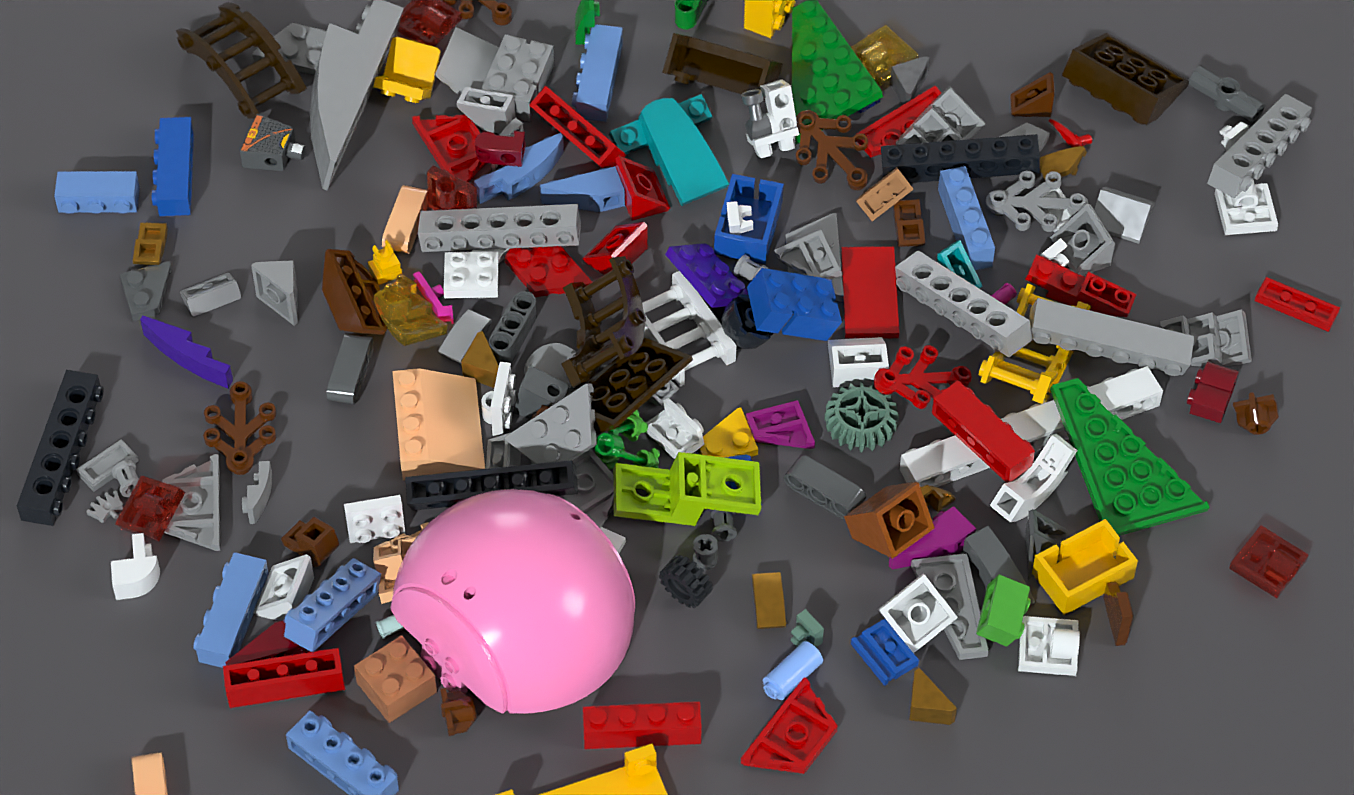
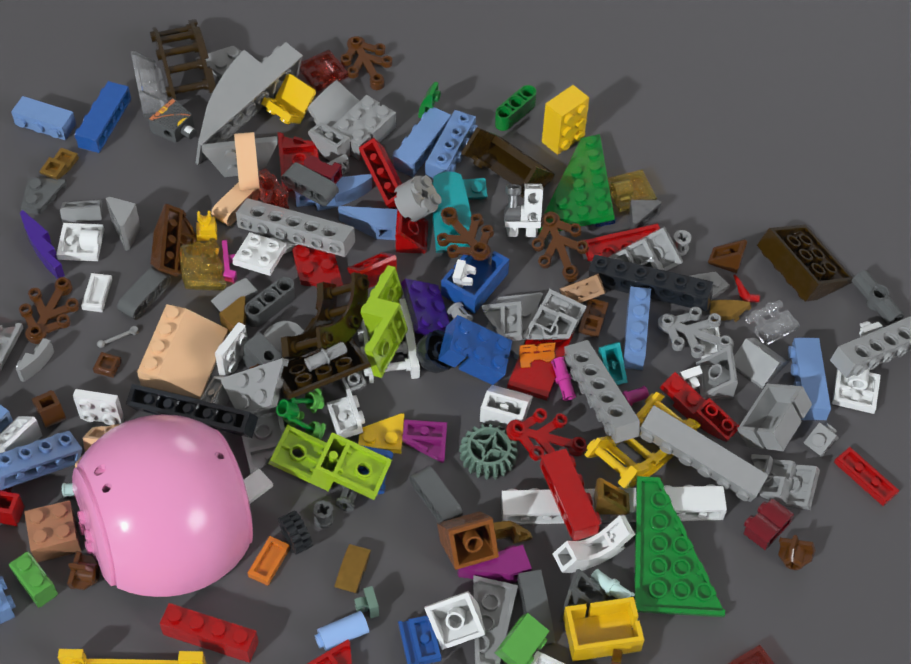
camera: 20 degrees right, 0 degrees up
(213, 108) = (149, 84): none -> clear slope
(234, 332) = (80, 242): none -> white plate
(287, 387) = (96, 292): none -> white tile
(349, 469) = (107, 364): none -> reddish brown tile
(359, 418) = (133, 330): none -> light grey hinge
(387, 160) = (224, 154): none -> light grey wing
(402, 739) = (33, 579): none -> bright green brick
(404, 164) = (246, 161): none -> light nougat beam
(494, 168) = (310, 184): none -> dark grey beam
(631, 366) = (325, 356): none -> light grey axle
(637, 66) = (451, 144): none -> medium blue brick
(637, 144) = (417, 198): none -> light grey brick
(665, 625) = (268, 560): none -> orange tile
(672, 302) = (384, 321): none -> lime bracket
(744, 184) = (478, 250): none -> reddish brown plant
(855, 295) = (527, 358): none -> orange piece
(867, 237) = (555, 318): none -> light grey slope
(909, 305) = (563, 378): none -> dark pink pin
(973, 95) = (684, 240): none -> light grey bush
(1030, 421) = (610, 499): none -> pearl gold slope
(1071, 519) = (611, 586): none -> light aqua pin
(1123, 167) = (775, 327): none -> clear plate
(1172, 269) = (774, 417): none -> light grey piece
(1189, 213) = (809, 372): none -> medium blue brick
(1231, 277) = (821, 438): none -> light grey bracket

